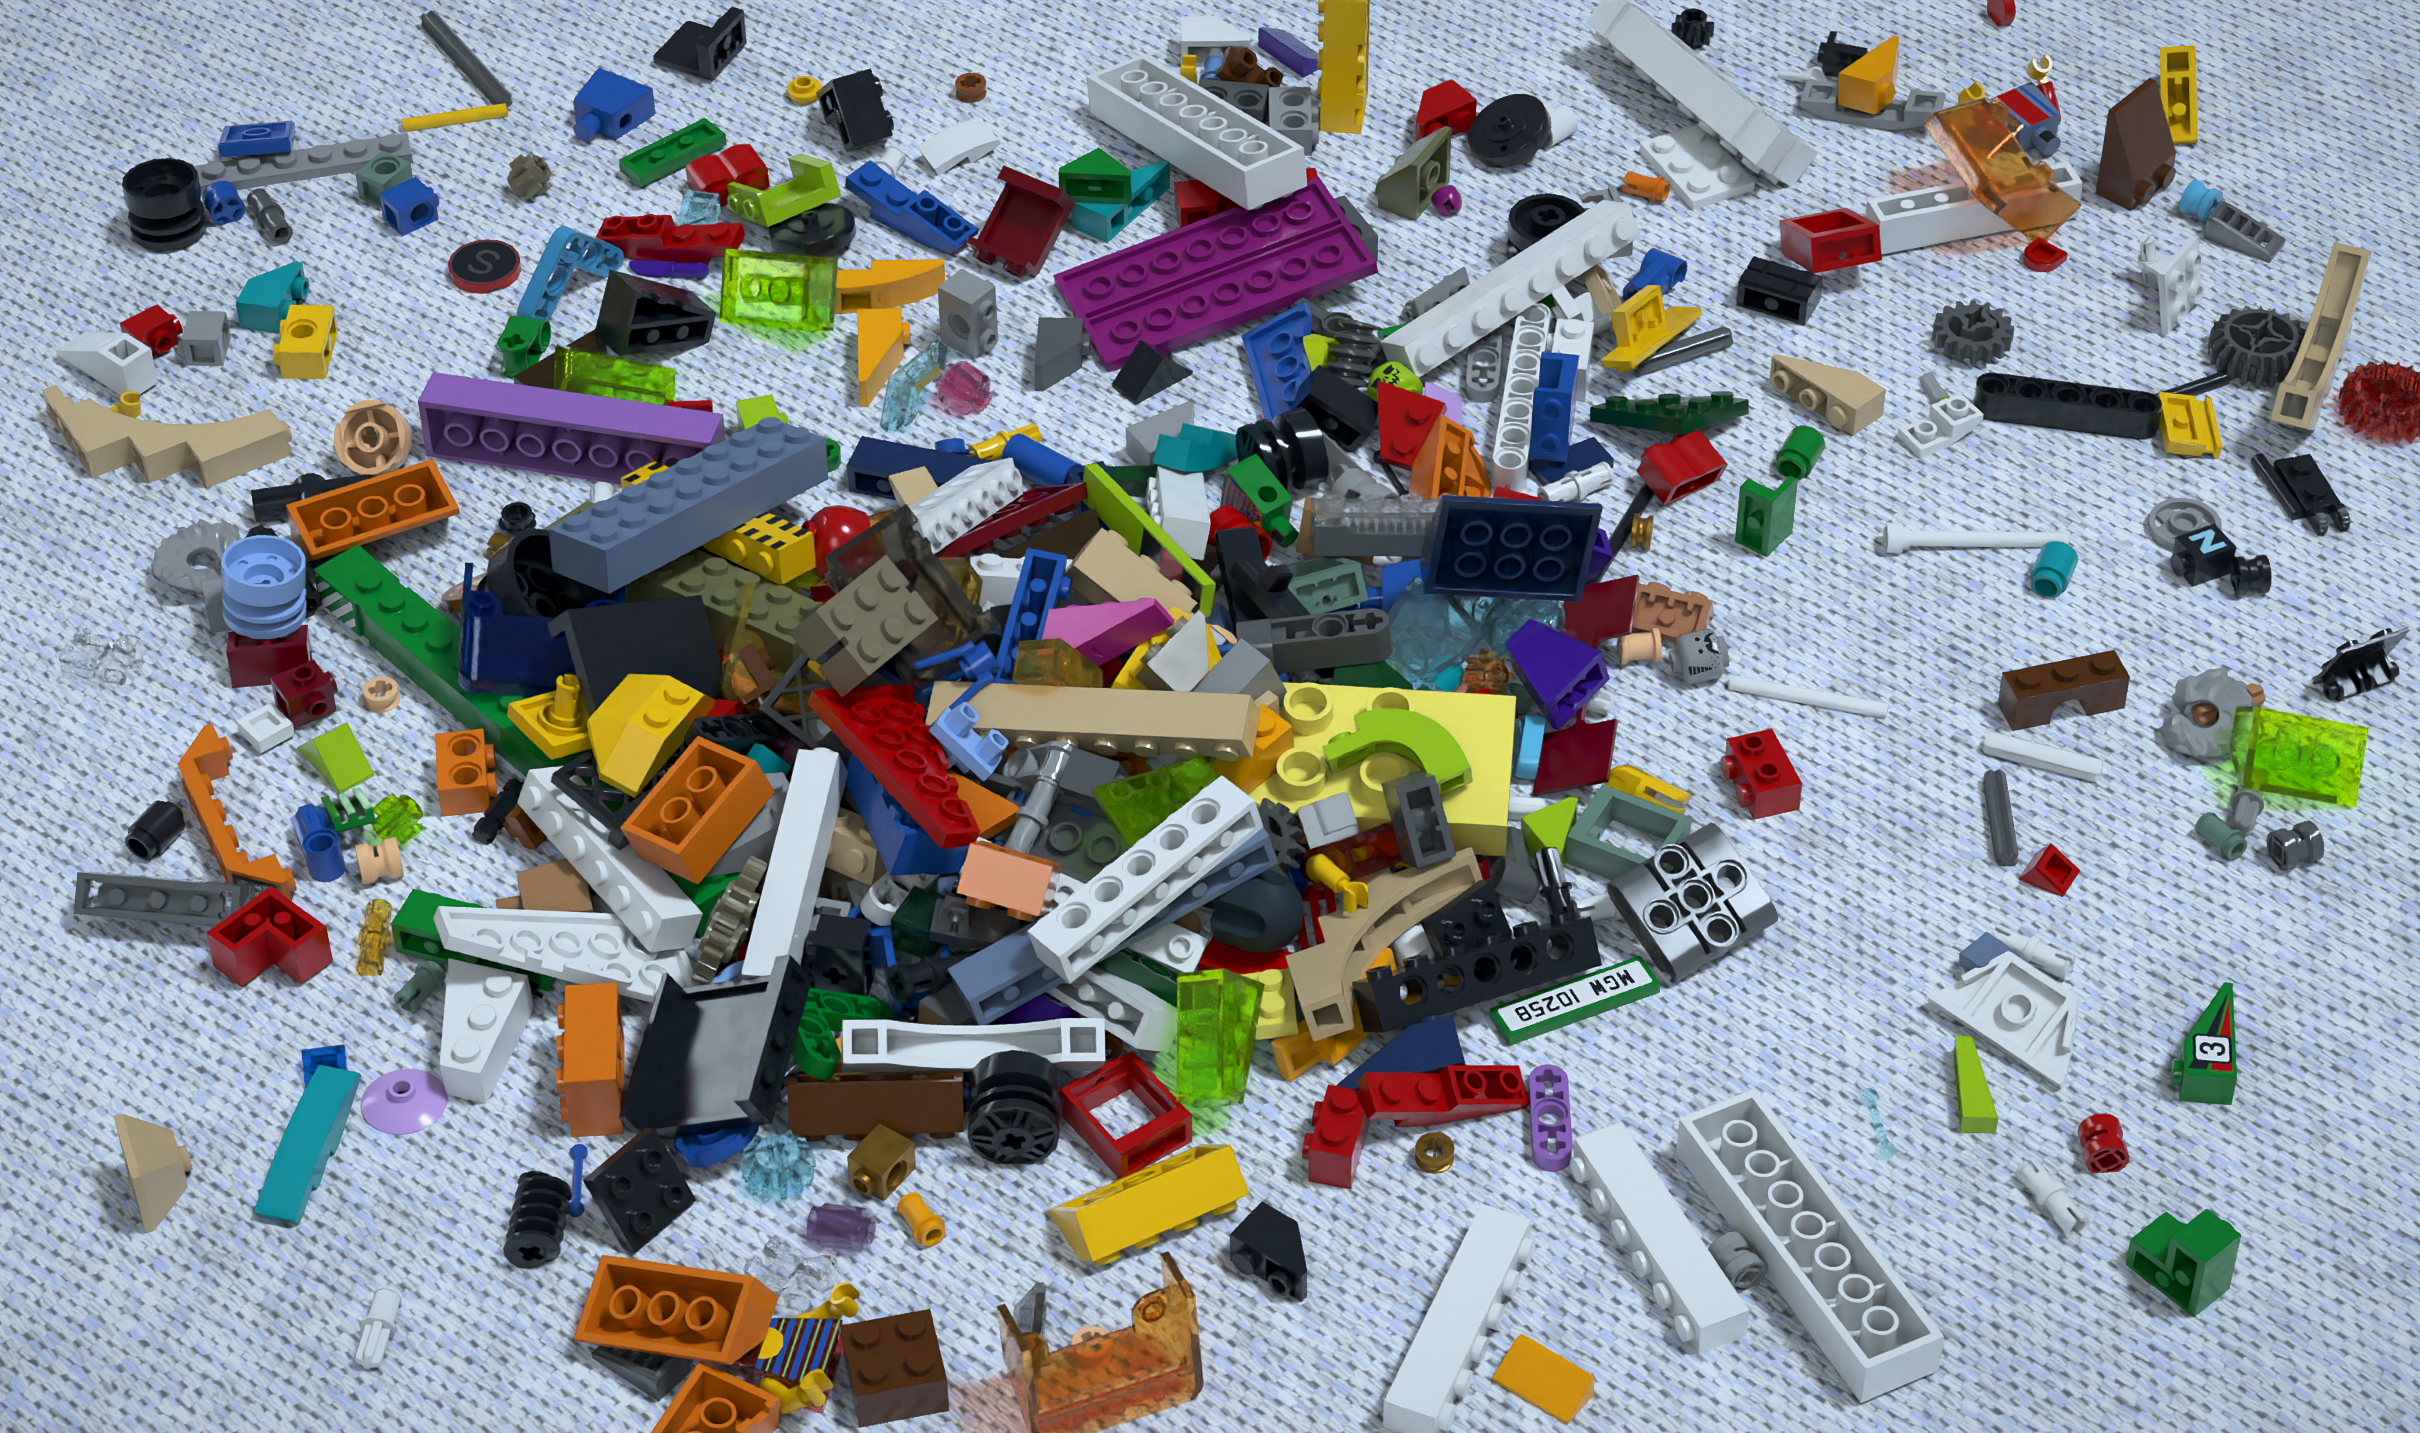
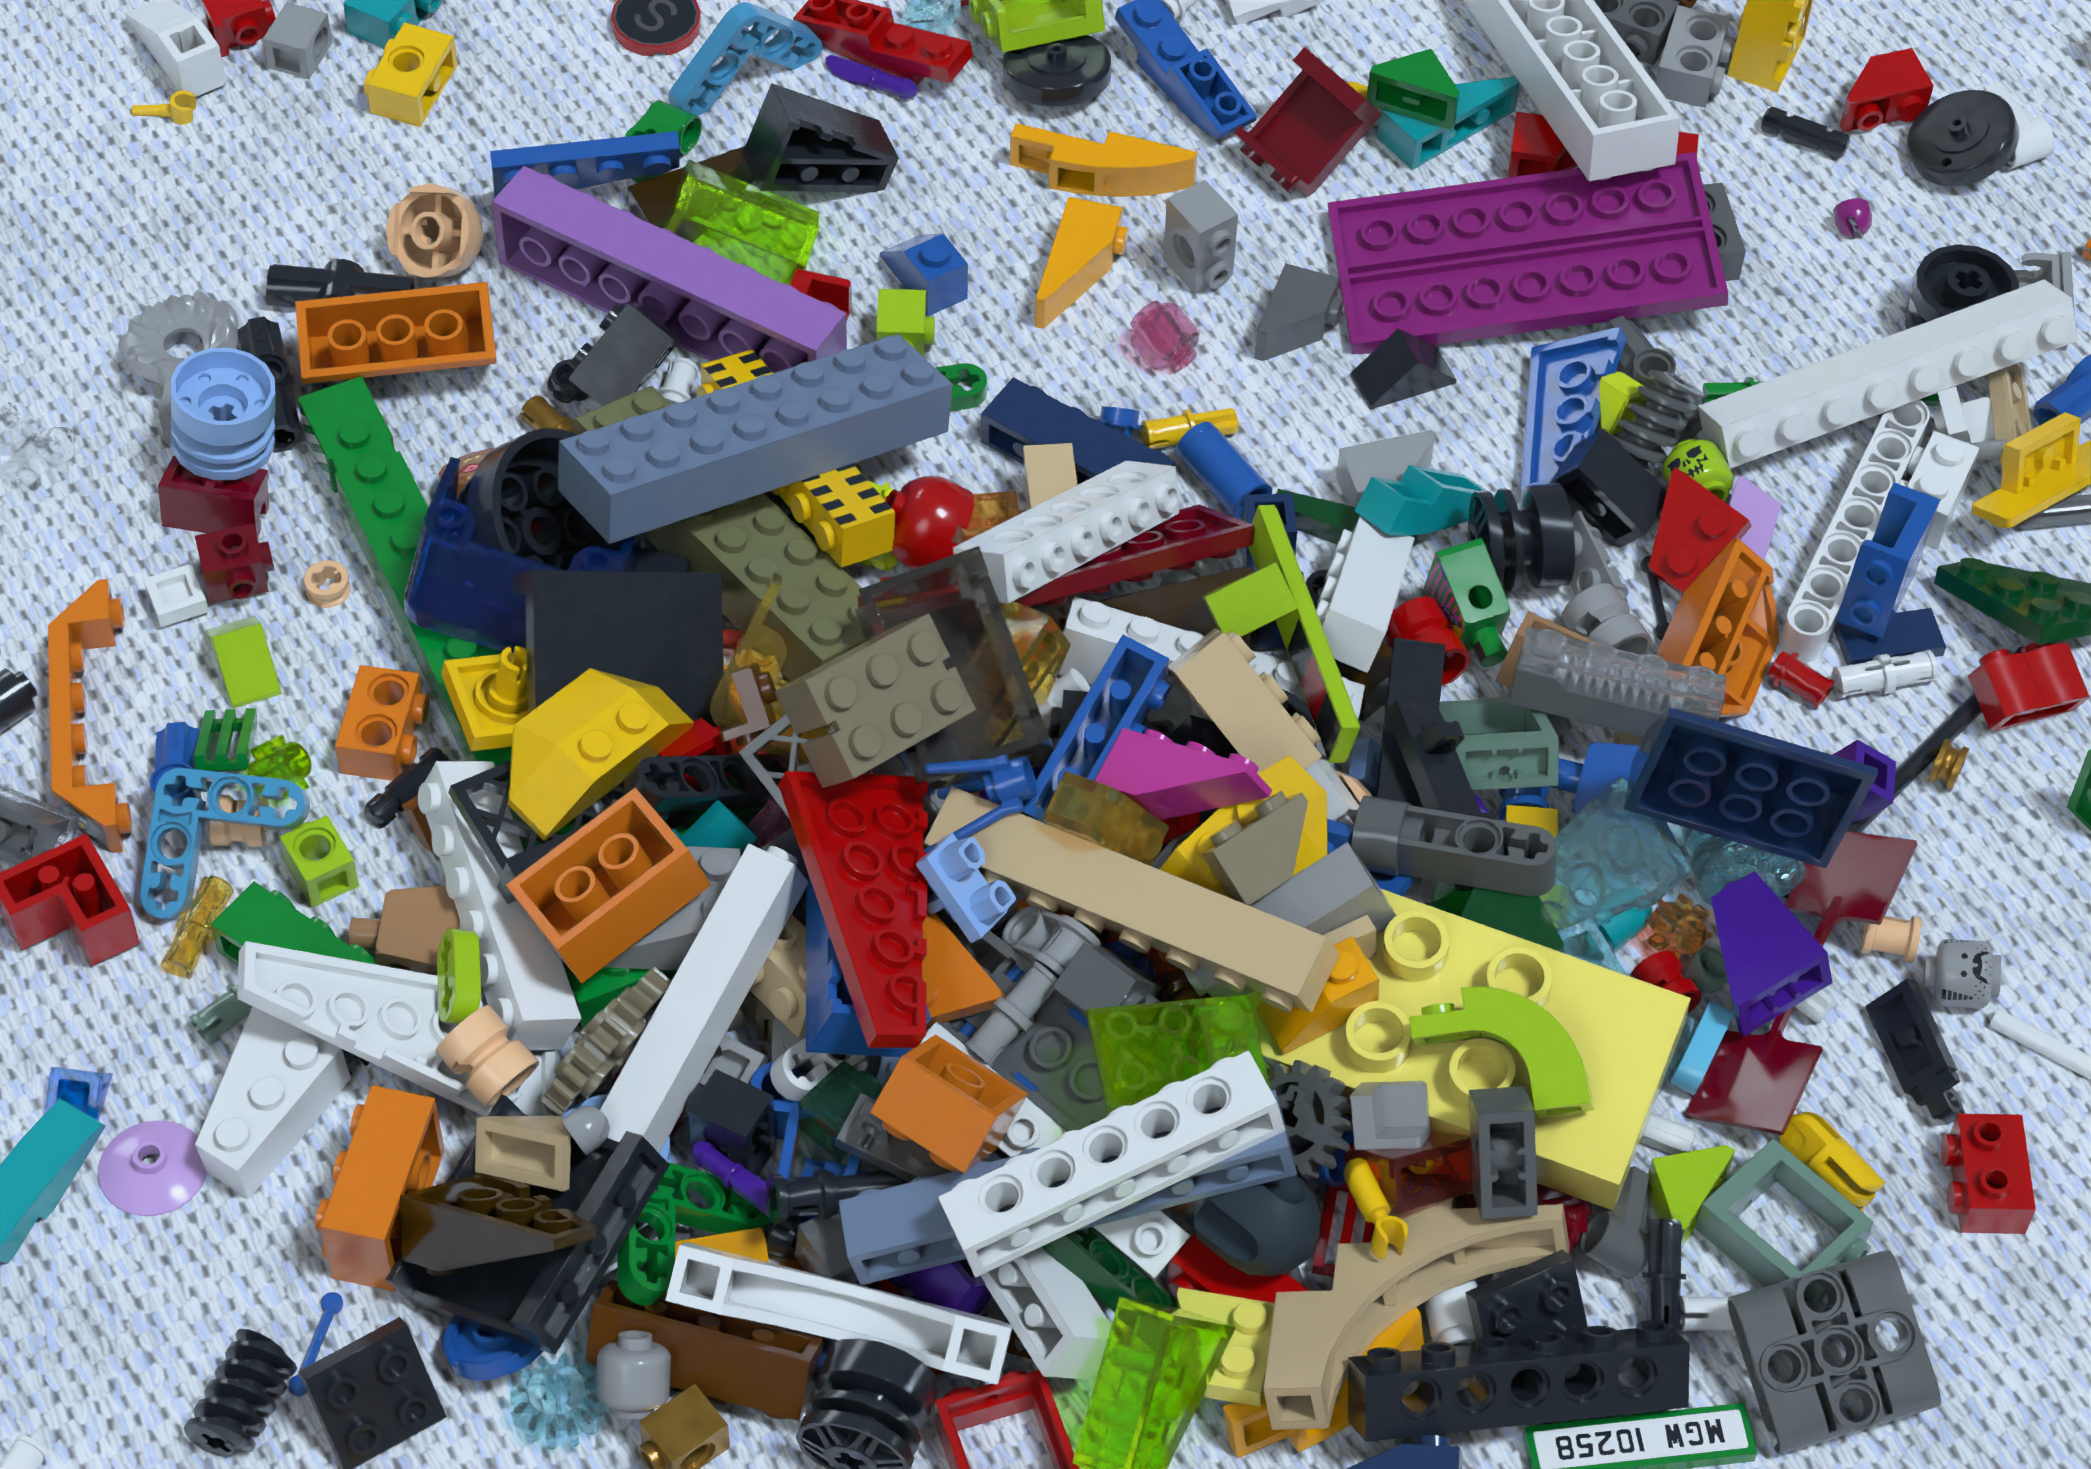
camera: 15 degrees right, 10 degrees up
(214, 450) = (256, 195): tan arch -> none
(345, 861) = (190, 820): none -> dark azure beam
(453, 870) = (320, 878): none -> lime brick
(482, 361) = (591, 161): none -> blue wing
(559, 484) = (624, 355): none -> black brick
(601, 905) = (458, 975): none -> lime beam
(639, 948) = (487, 1056): none -> light nougat wheel
(682, 1055) = (481, 1223): none -> dark brown wedge
(696, 1003) = (524, 1149): none -> tan slope
(741, 970) = (587, 1127): none -> light grey hinge
(768, 377) = (930, 265): none -> blue slope
(778, 289) = (984, 146): clear neon green slope -> none
(832, 1126) = (633, 1375): none -> light grey head
(857, 986) = (731, 1174): none -> dark purple piece
(906, 384) = (1095, 315): clear light blue plate -> none
(1110, 514) = (1250, 601): none -> lime slope
(1382, 153) = (1805, 132): none -> black axle
(1416, 175) = (1823, 175): olive slope -> none
(1435, 295) = (1797, 352): light grey hinge -> none
(1490, 353) = (1829, 478): light grey beam -> none
(1670, 611) = (1947, 899): nougat bracket -> none
(1682, 711) = (1917, 1049): none -> black hinge

